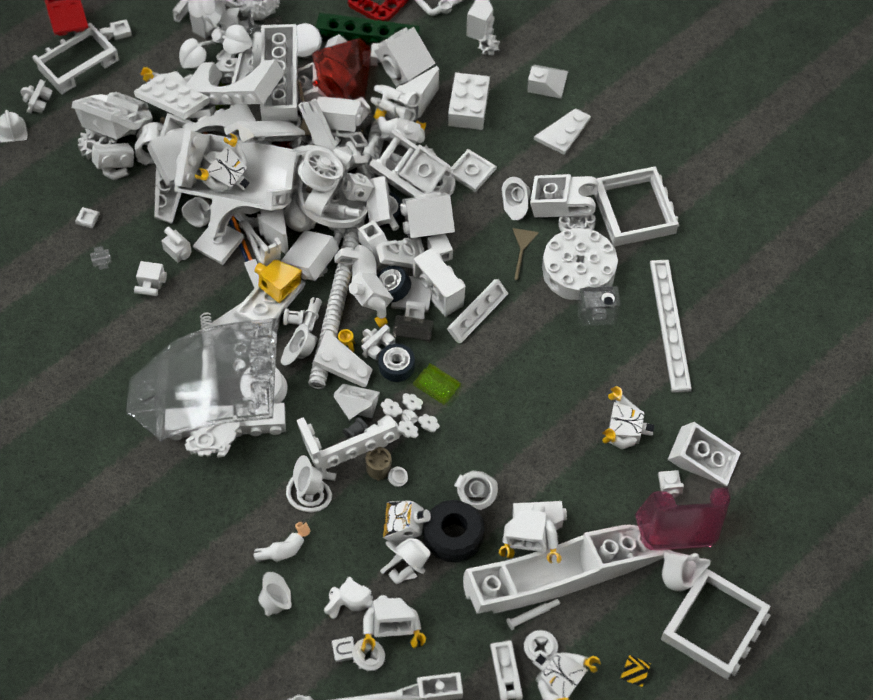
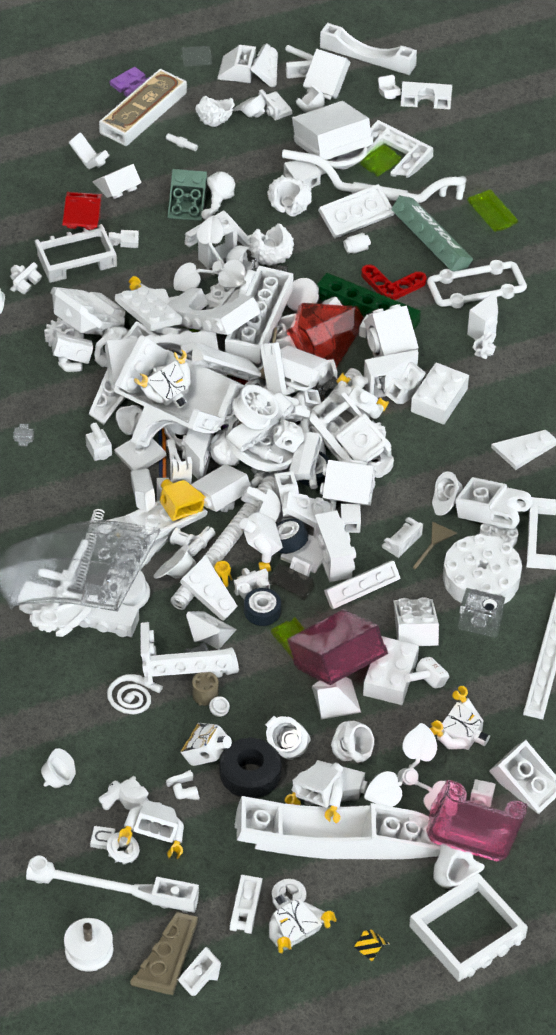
camera: 20 degrees right, 10 degrees down
(87, 217) = (27, 397): white tile -> none
(150, 277) = (61, 465): white brick -> none
(238, 279) = (143, 489): none -> white piece
(283, 550) = (83, 735): white arm -> none
(307, 478) = (132, 679): white piece -> none
(408, 417) = (252, 658): white plant -> none
(410, 99) = (358, 362): white piece -> none
(413, 552) = (202, 773): white piece -> none
(437, 102) = (403, 388): none -> white brick
(472, 170) = (415, 458): white tile -> none
(487, 384) = (337, 646): none -> clear pink container
(494, 252) = (404, 537): none -> white hinge
(499, 431) = (336, 699): none -> white slope
(531, 614) = (292, 864): white piece -> none
(537, 470) = (353, 742): none -> white helmet
(540, 389) = (387, 675): none -> white brick
(541, 333) = (416, 621): none -> white slope
(547, 81) = (527, 396): white slope -> none
(575, 379) = (429, 671): none -> white piece
(592, 515) = (385, 788): none -> white plant

